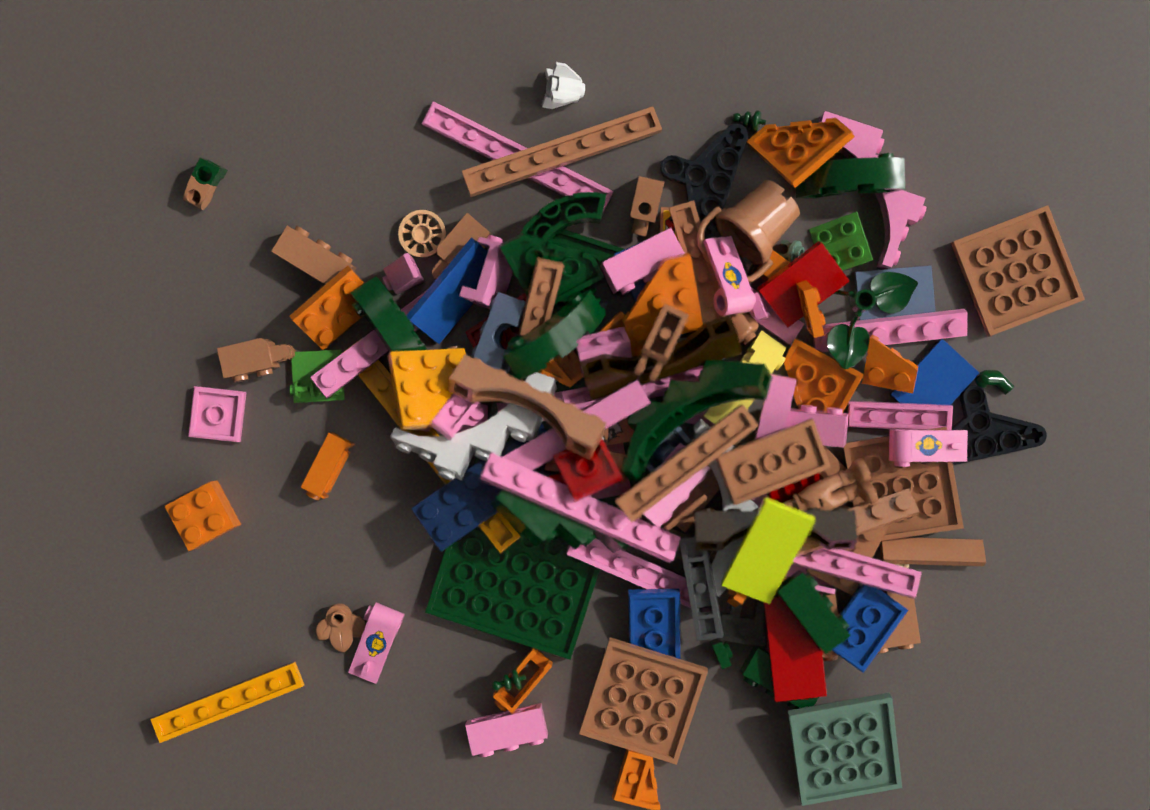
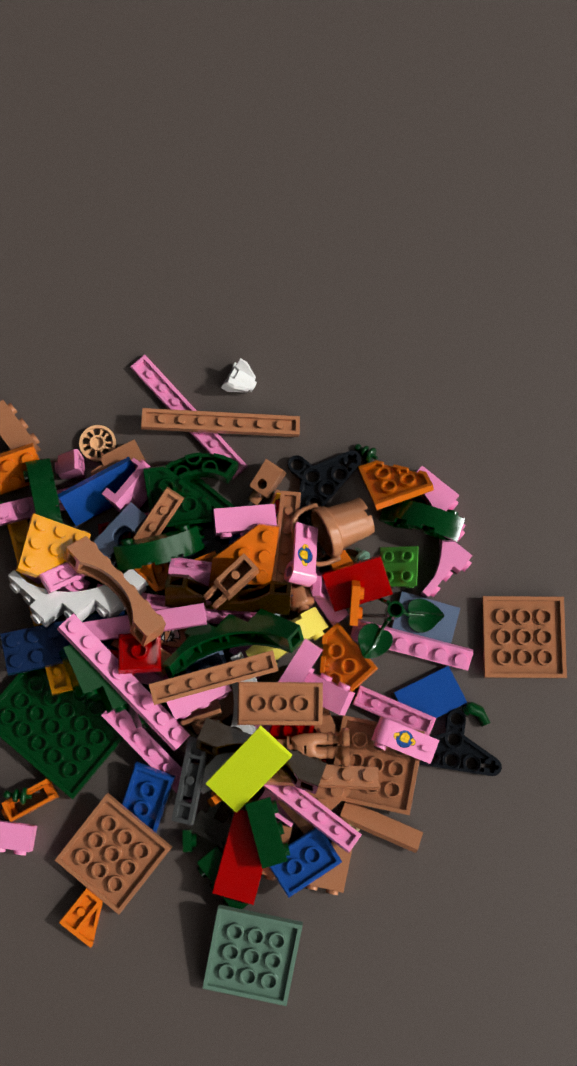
camera: 25 degrees right, 10 degrees down
(888, 368) = (397, 671): orange wing -> none

